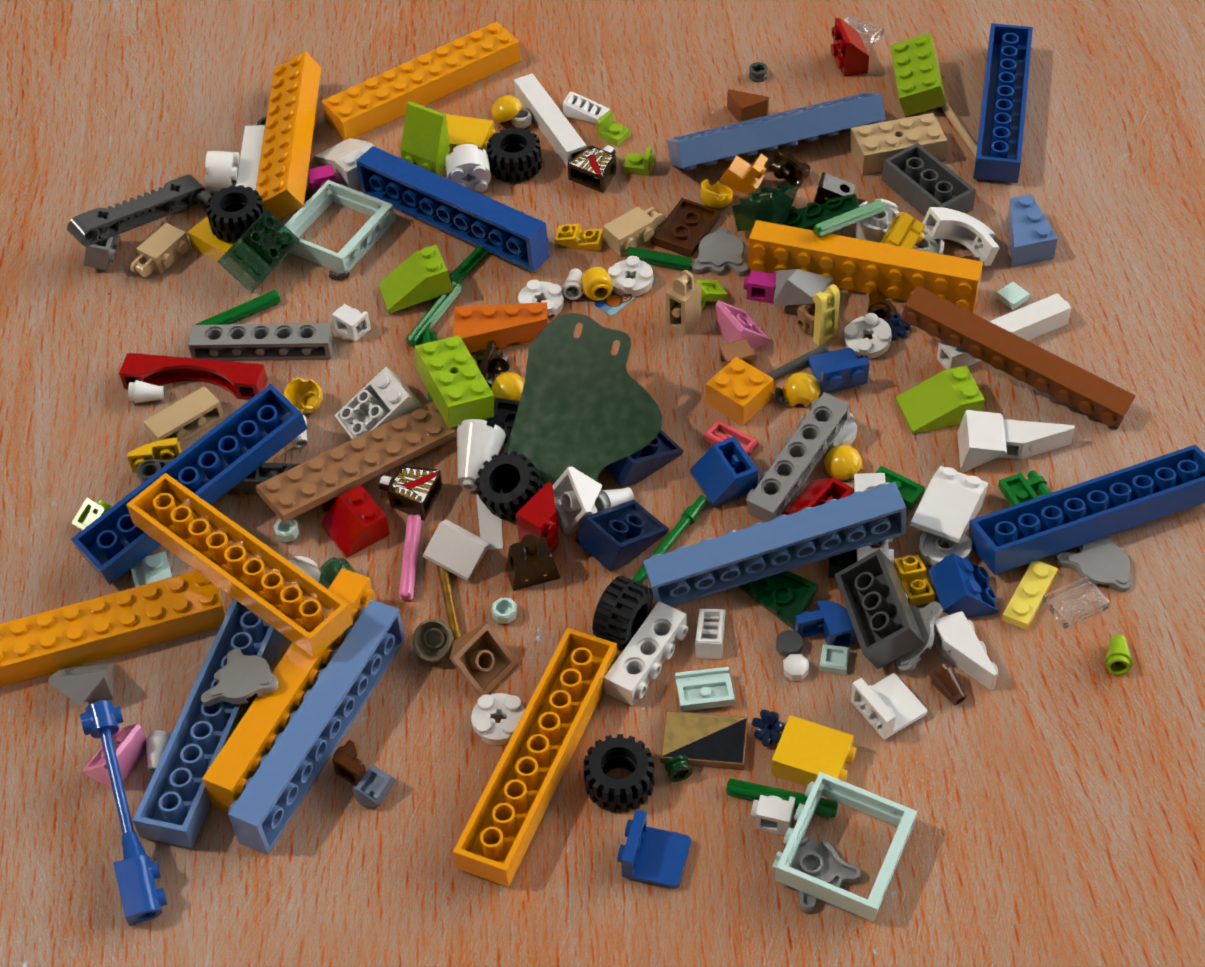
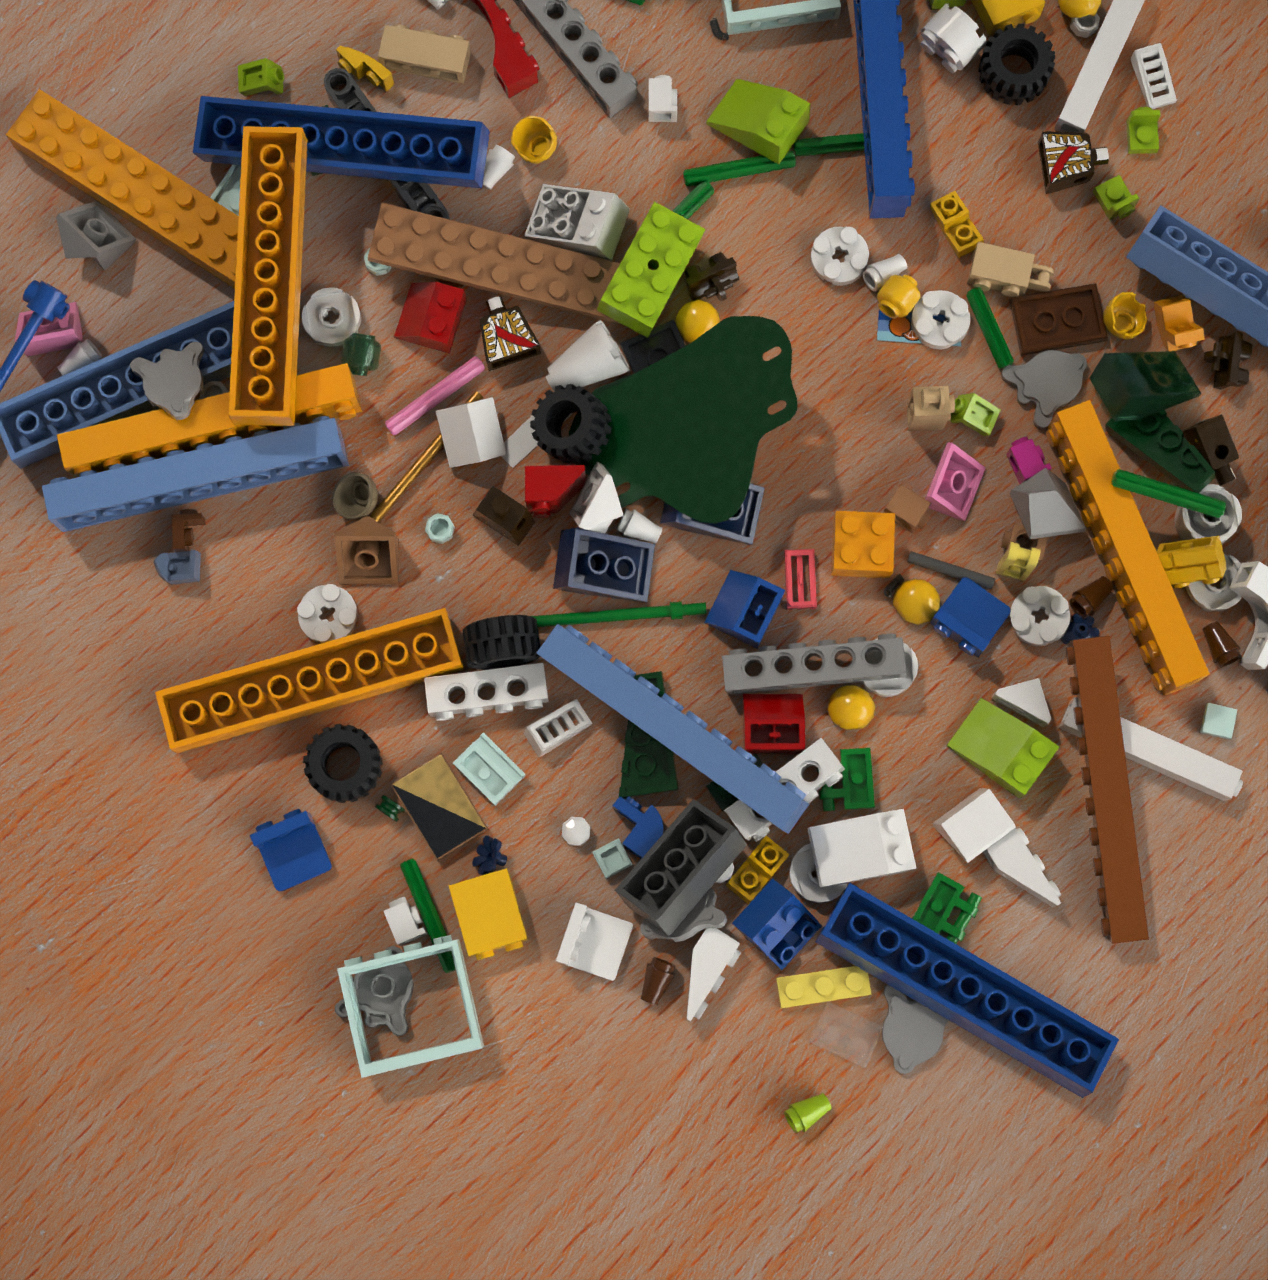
camera: 50 degrees right, 30 degrees up
(499, 323) = (759, 241): orange wedge -> none
(789, 643) = (598, 807): dark grey tile -> none
(918, 369) = (1025, 699): none -> white slope

